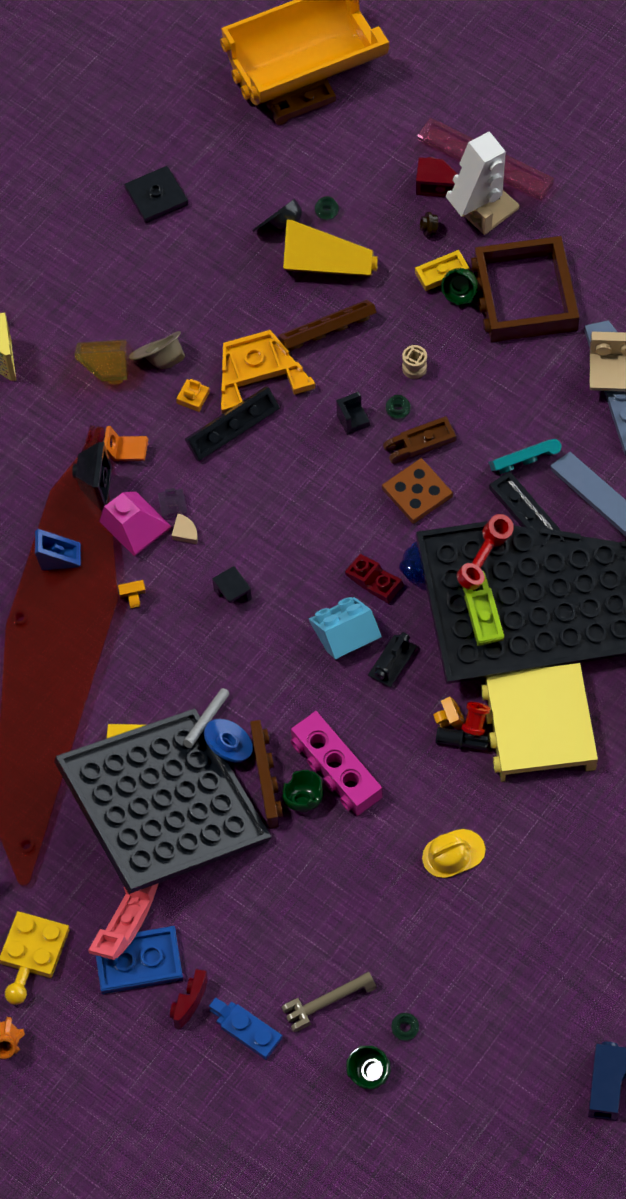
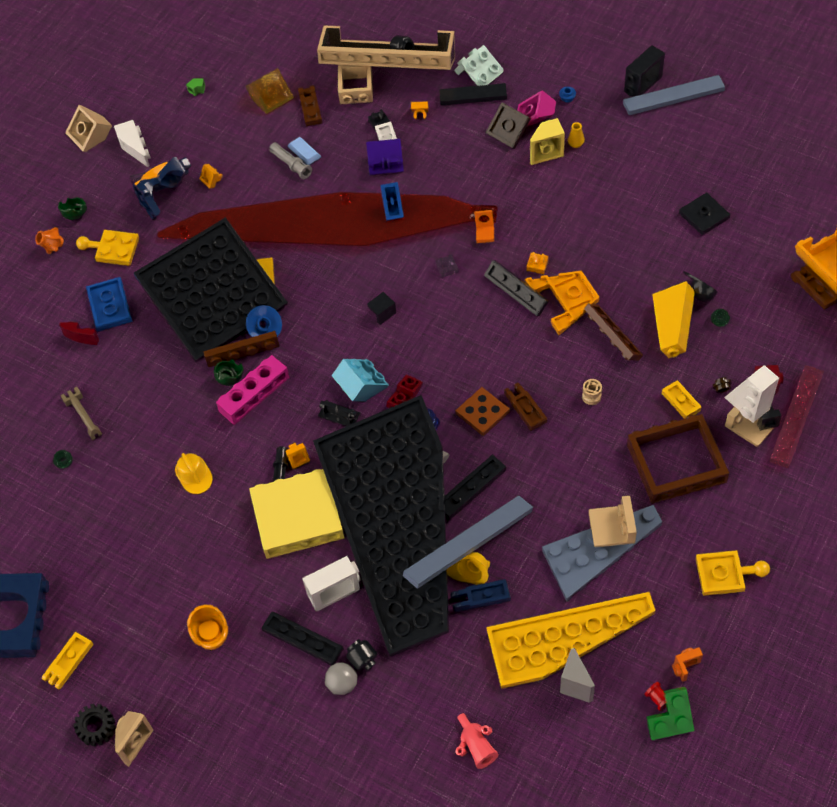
camera: 85 degrees right, 5 degrees down
(94, 473) = (447, 212): black slope -> none
(104, 359) = (553, 205): clear yellow slope -> none
(124, 924) = (129, 290): coral slope -> none
(131, 591) = (371, 253): light orange tile -> none
(133, 522) = (425, 242): dark pink slope -> none
(161, 353) = (565, 235): dark tan piece -> none
(184, 530) = (427, 275): tan tile -> none
(206, 717) = (279, 308): light grey bar -> none
(246, 1028) = (62, 368): blue hinge -> none
(351, 413) = (537, 358): black panel -> none
(368, 1067) = (31, 439): dark green hair -> none
(398, 401) = (552, 383): clear green plate -> none
(459, 286) = (666, 411): dark green hair -> none
(475, 718) = (287, 468): red bush -> none
(484, 614) = (366, 448): lime hinge -> none
(495, 534) = (382, 430): red piece -> none
(525, 455) = (522, 476): teal plate -> none

